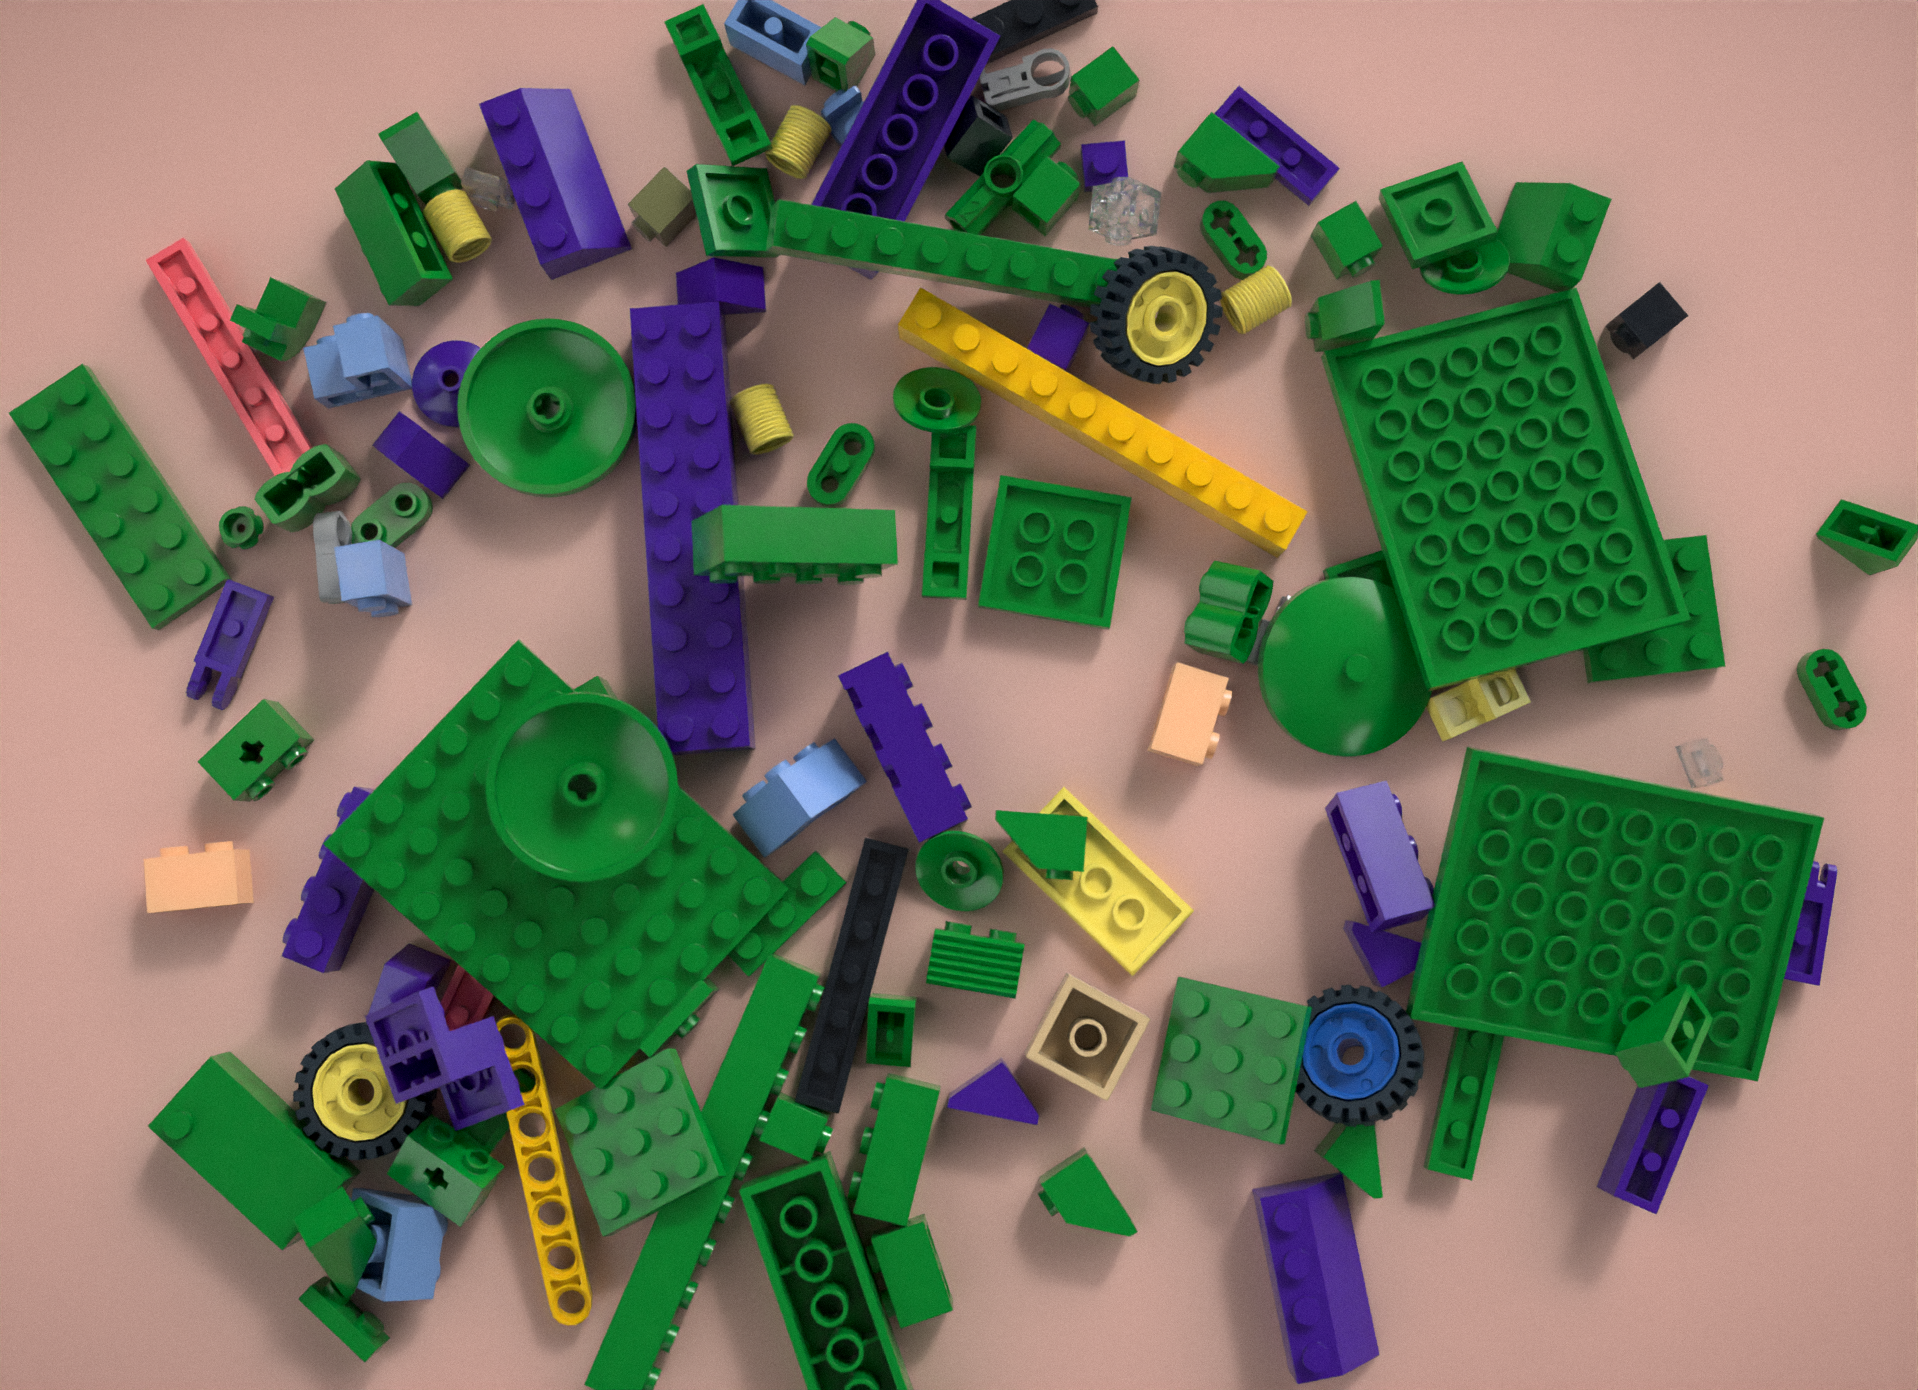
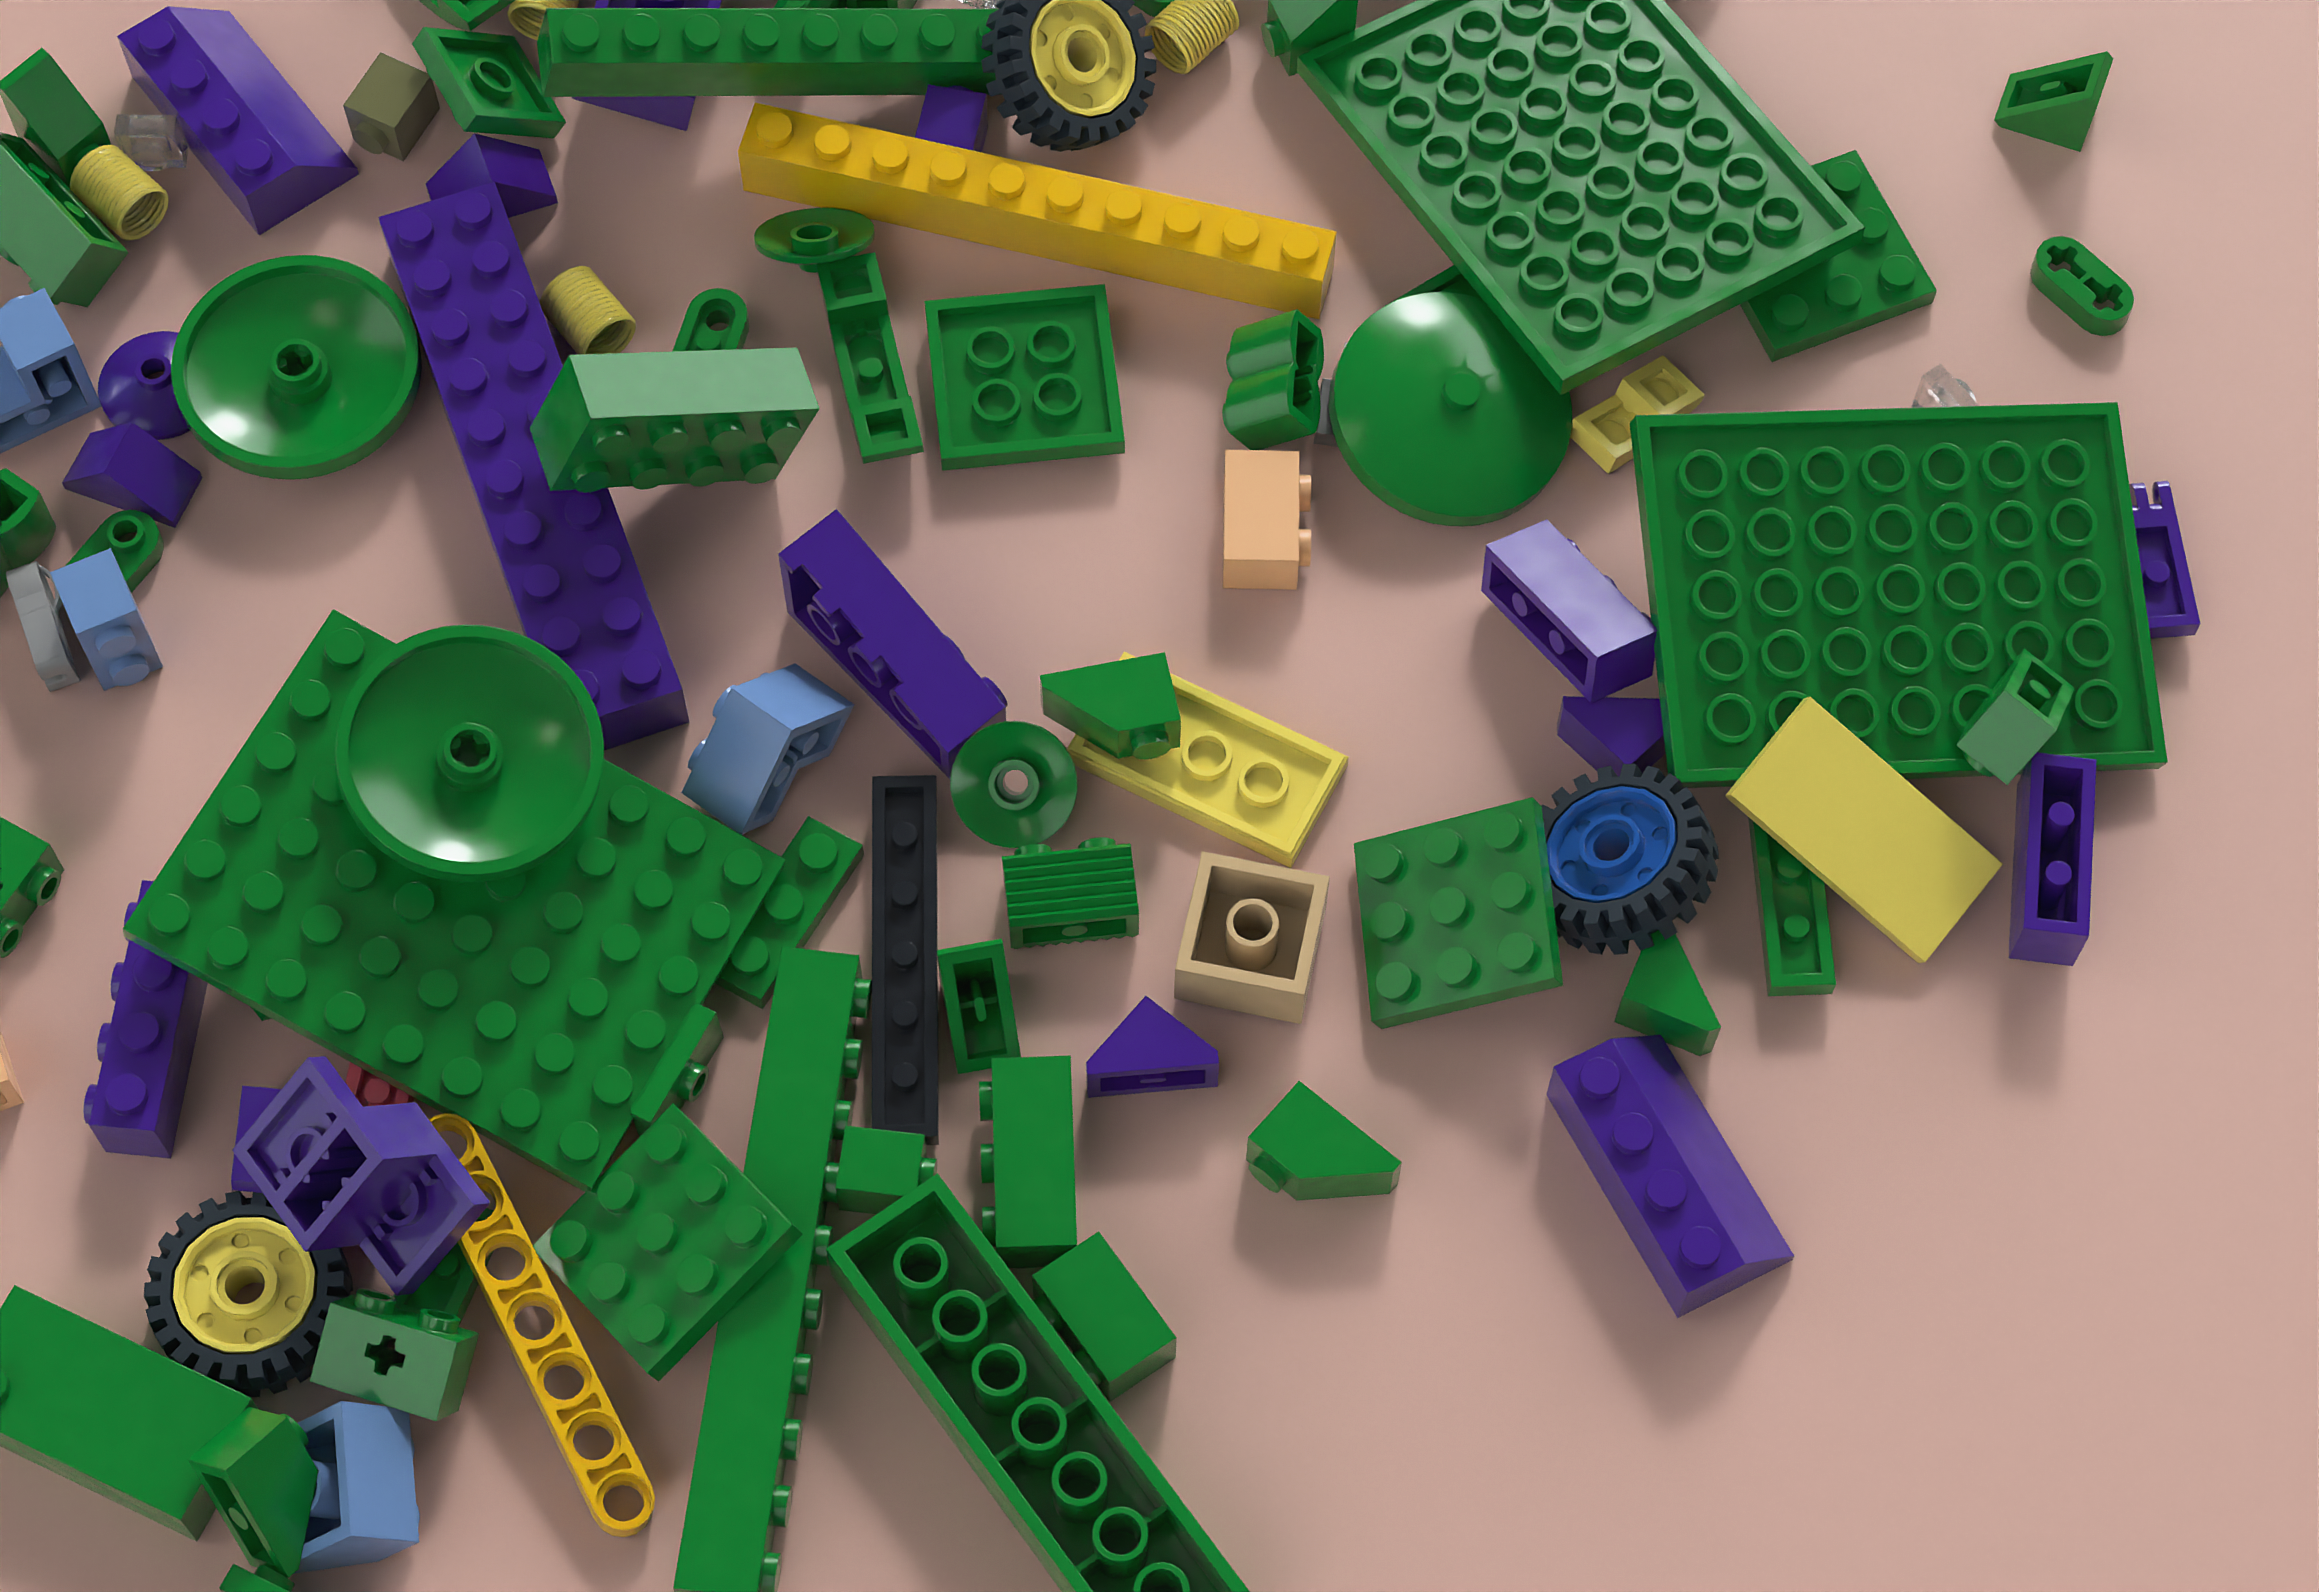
camera: 20 degrees left, 20 degrees down
(1528, 1081) = (1864, 830): none -> light yellow tile

